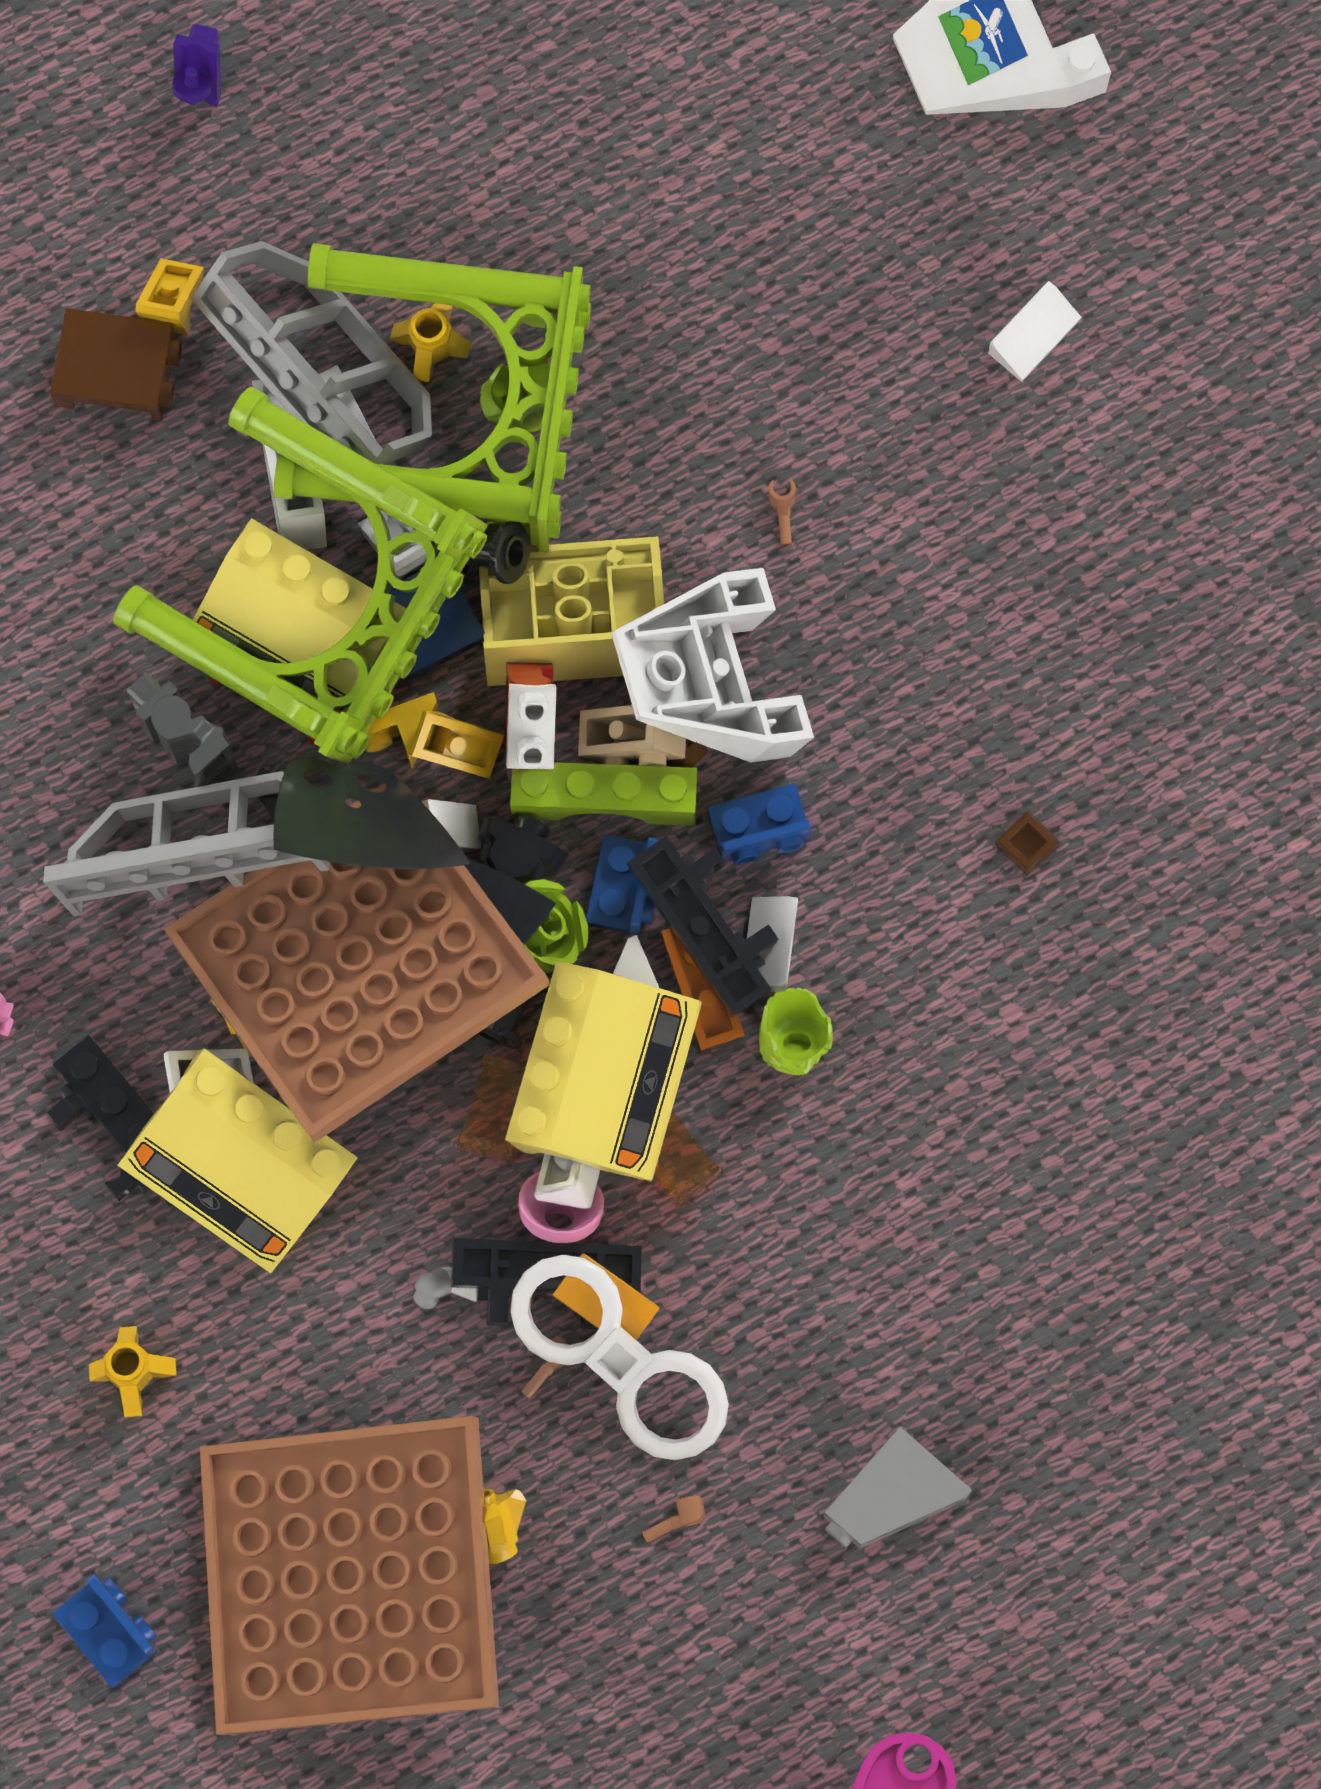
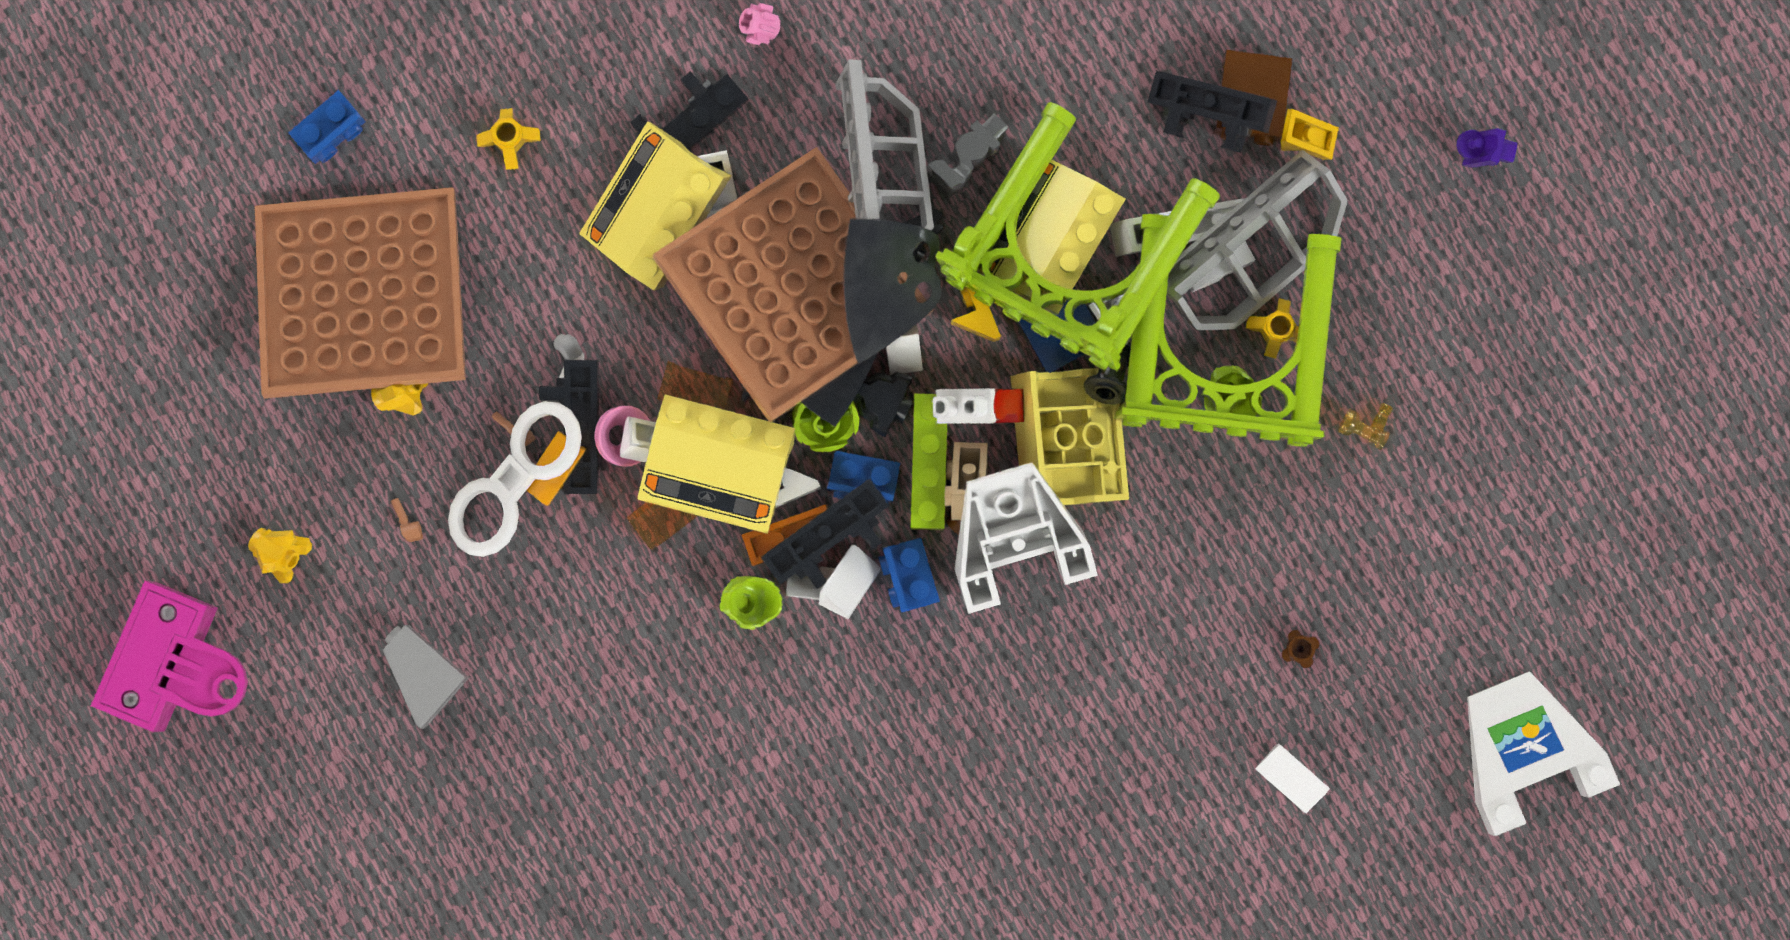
camera: 85 degrees right, 10 degrees up
(133, 376) = (1234, 108): none -> black hinge
(456, 744) = (963, 353): yellow slope -> none
(561, 248) = (1373, 433): none -> clear yellow piece
(718, 1699) = (278, 552): none -> yellow rock
(770, 899) = (849, 582): none -> white slope
(783, 505) = (1149, 591): nougat hand -> none
(860, 306) = (1309, 645): none -> reddish brown plate
(1027, 843) = (898, 771): reddish brown tile -> none

